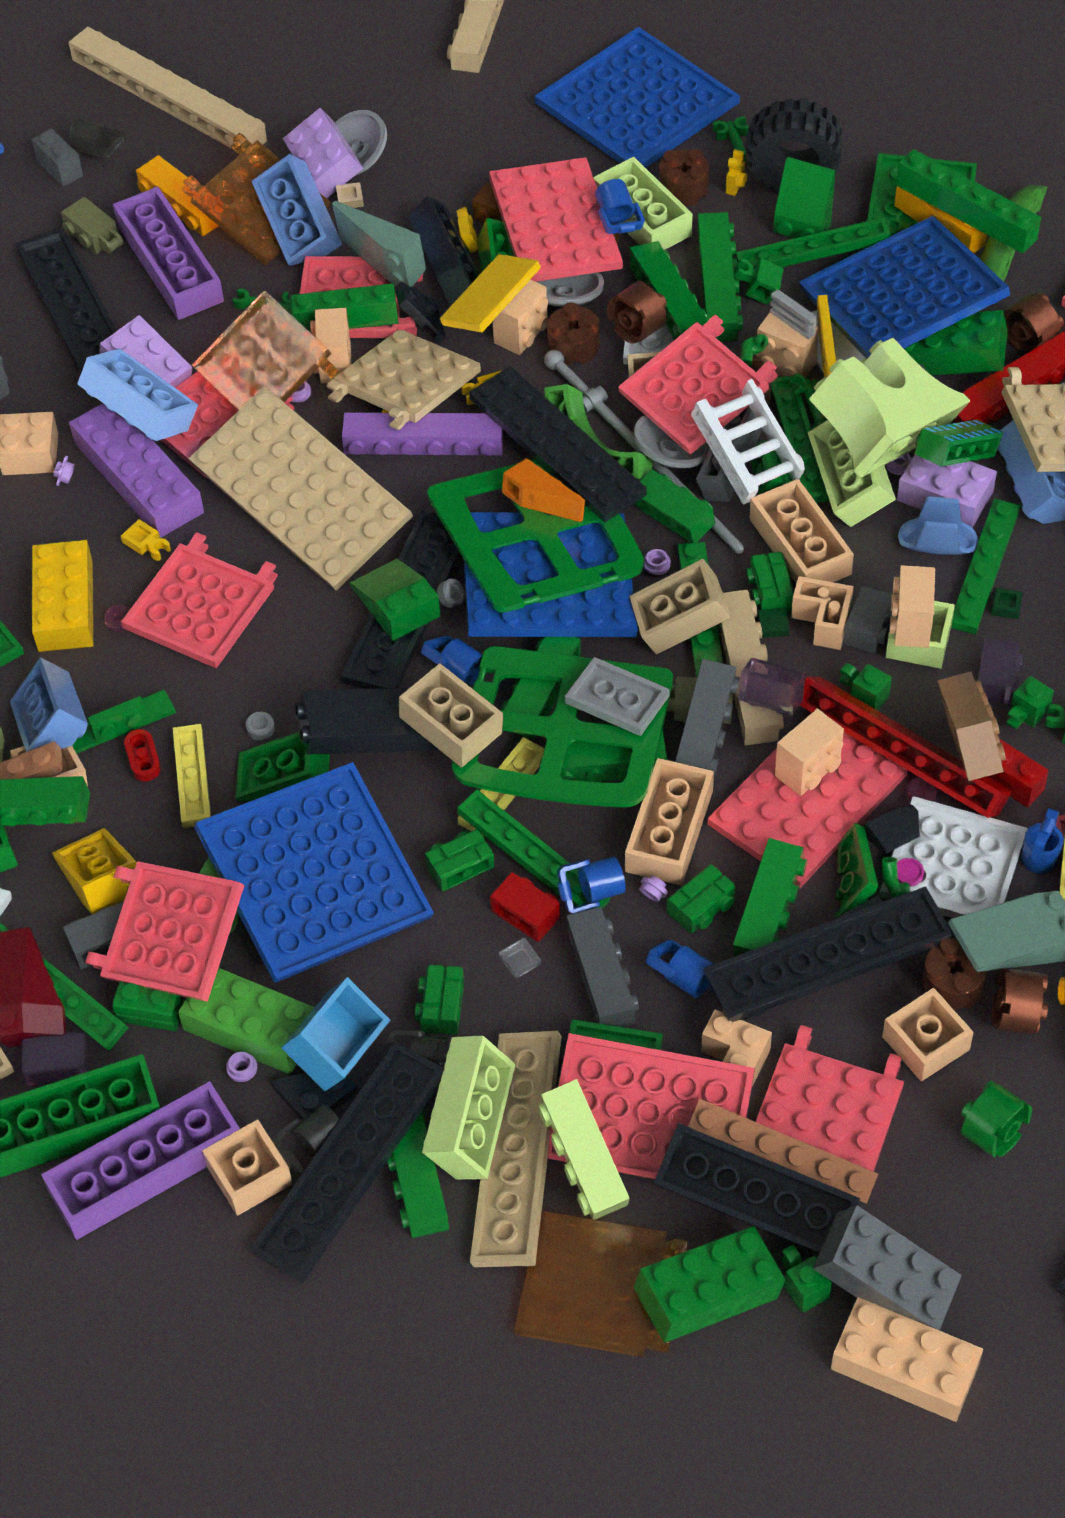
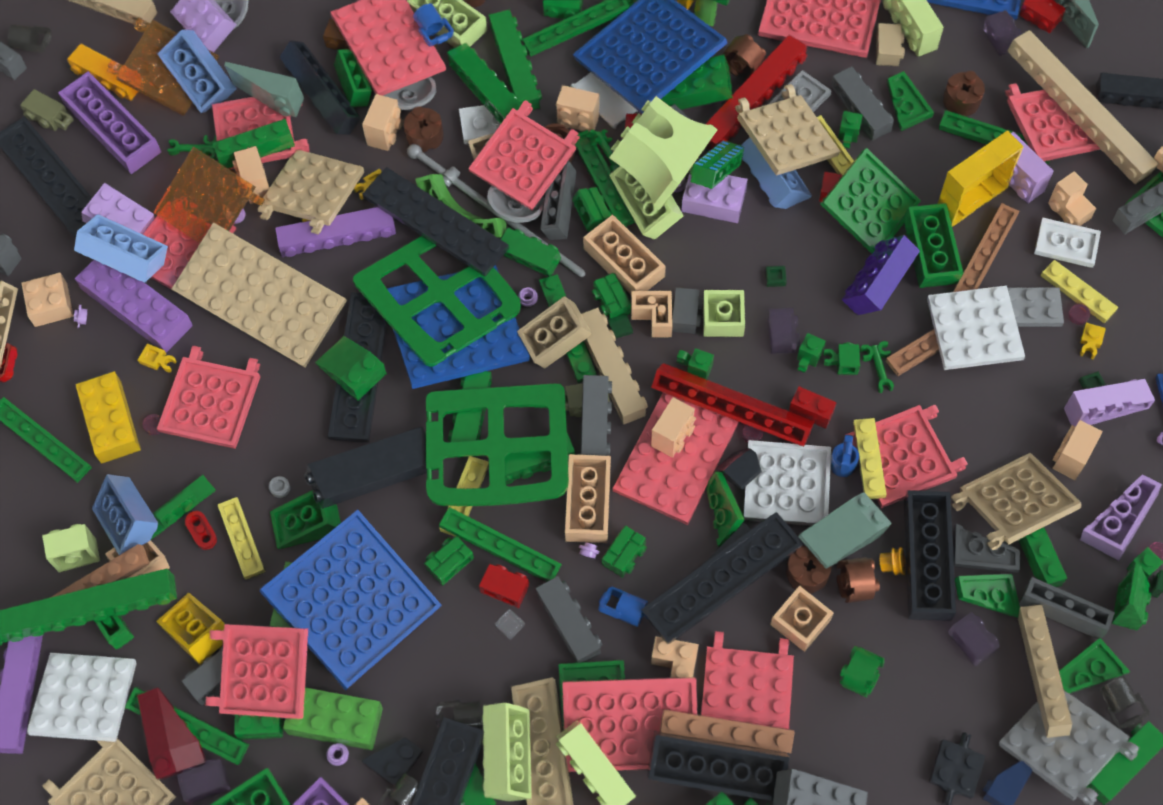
camera: 15 degrees left, 10 degrees up
(336, 1034) = (399, 719): dark azure piece -> none
(350, 194) = (231, 47): tan plate -> none
(421, 308) = (309, 131): black wing -> none
(441, 1000) = (464, 670): green brick -> none
(450, 593) = (388, 353): light grey tile -> none
(450, 715) = (418, 458): tan brick -> none
(456, 657) = (408, 405): blue piece -> none
(467, 230) = (325, 60): yellow plate -> none
(490, 293) = (358, 113): yellow tile -> none
(539, 491) = (433, 264): orange slope -> none
(597, 882) = (551, 558): blue piece -> none
(617, 696) = (530, 415): light grey plate -> none
(637, 312) = (466, 105): copper brick -> none
(733, 461) = (553, 200): white fence -> none
(752, 347) = (554, 118): green arm -> none
(761, 279) = (547, 58): green brick -> none
(770, 896) = (671, 543): green brick -> none
(771, 686) = (635, 383): clear purple brick -> none
(793, 314) = (579, 88): light grey tile -> none
(825, 334) = (606, 105): yellow tile -> none
(890, 877) = (750, 509): green arm -> none
(910, 871) = (760, 499): dark pink piece -> none
(913, 606) = (719, 302): light nougat brick -> none
(939, 529) = (717, 231): medium blue piece -> none
(972, 725) = (779, 383): medium nougat brick -> none
(985, 566) = (754, 250): green plate -> none

